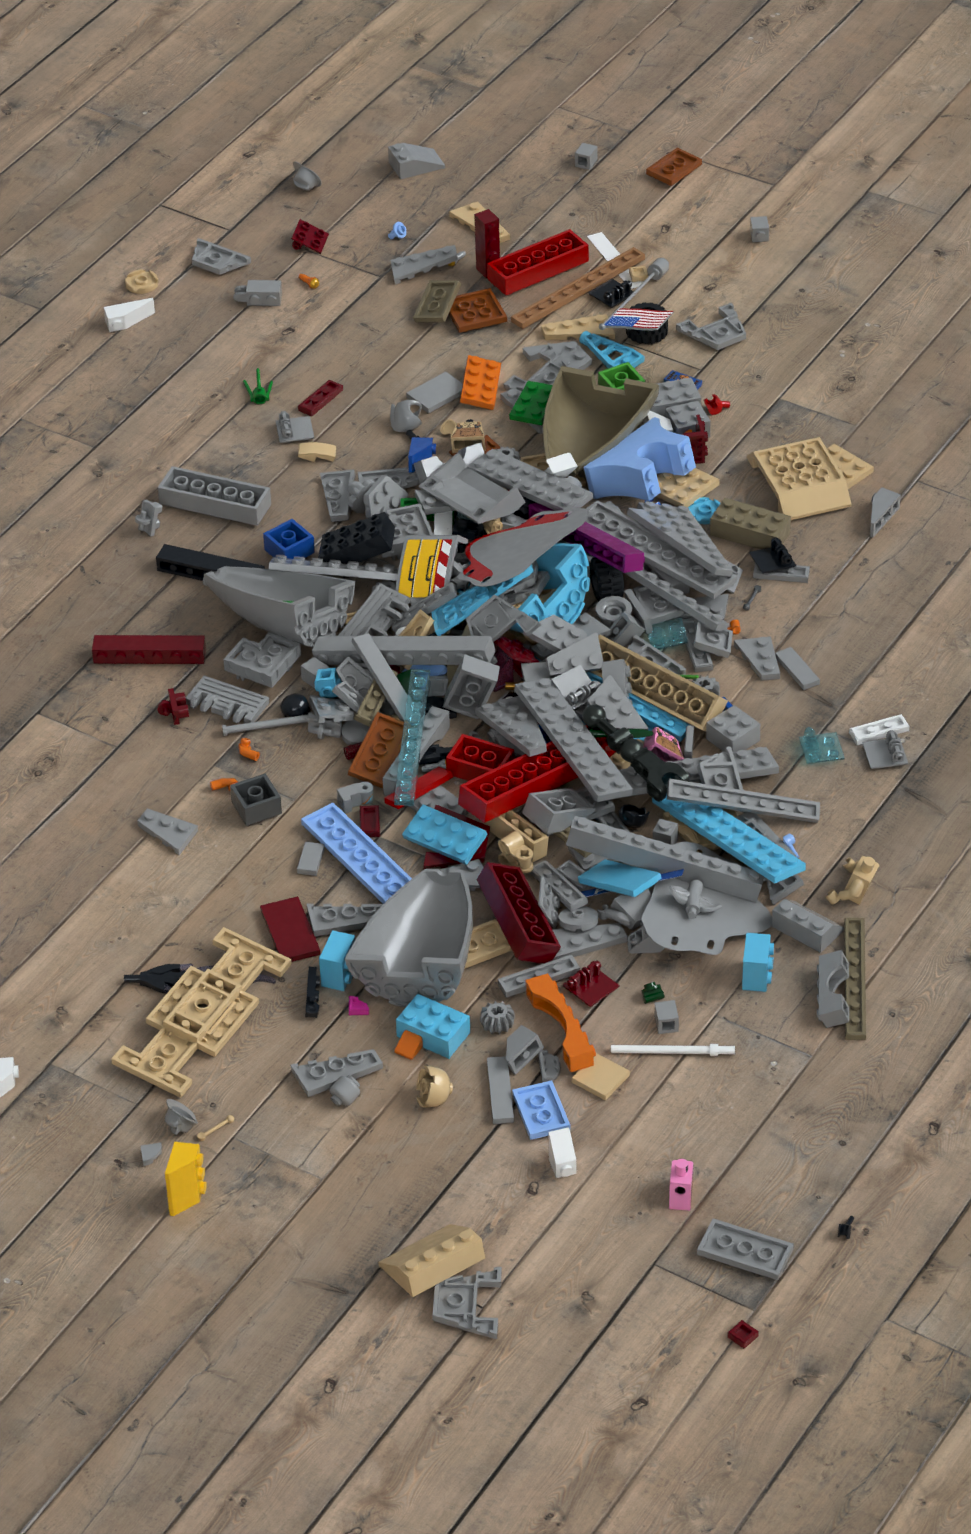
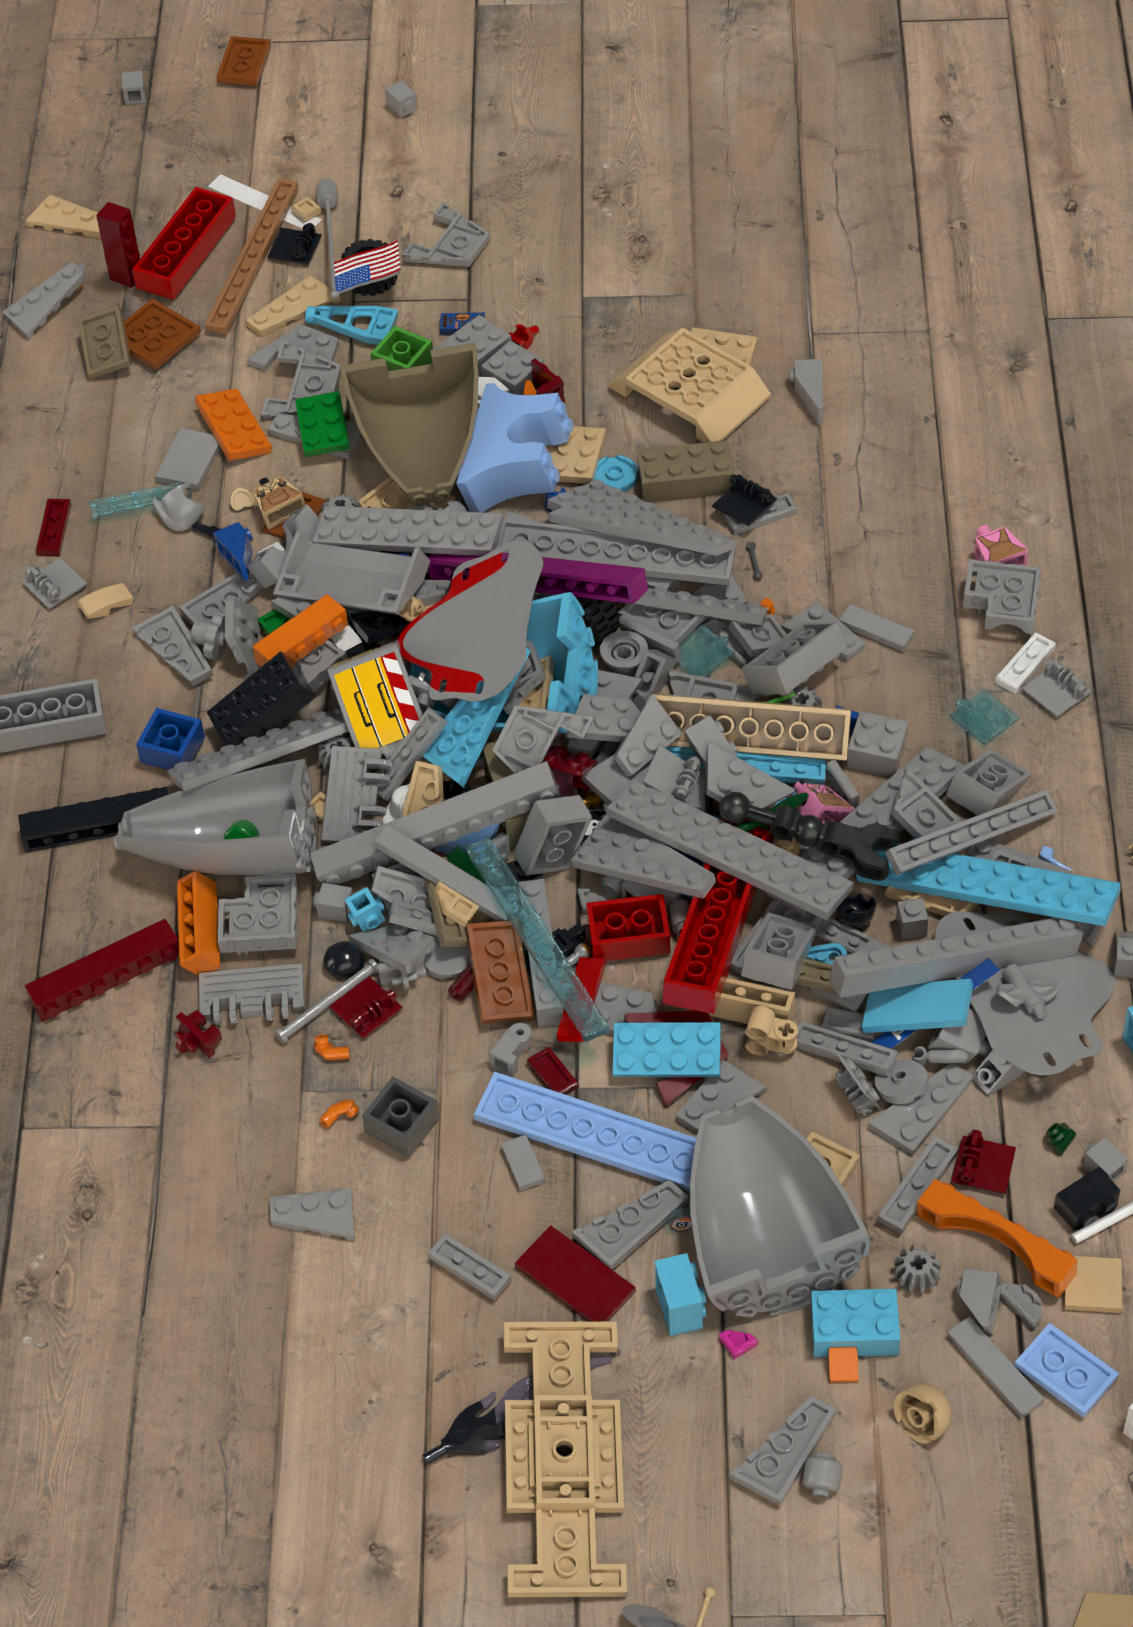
camera: 30 degrees left, 10 degrees up
(210, 661) = (198, 923): none -> orange brick
(232, 895) = (469, 1266): none -> light grey plate
(288, 737) = (366, 1007): none -> dark red hinge
(312, 998) = (674, 1356): black hinge -> none
(375, 400) = (129, 501): none -> clear light blue tile
(379, 699) = (455, 905): none -> tan tile
(415, 511) = (303, 632): none -> orange brick
(518, 913) = (838, 1114): dark red brick -> none
(561, 465) = (433, 494): white slope -> none
(637, 1029) = (1087, 1199): none -> black brick
(717, 657) = (794, 658): none -> light grey brick
(786, 781) = (987, 783): none -> light grey slope
(896, 680) = (1004, 592): none -> light grey piece
(918, 657) = (999, 546): none -> torso

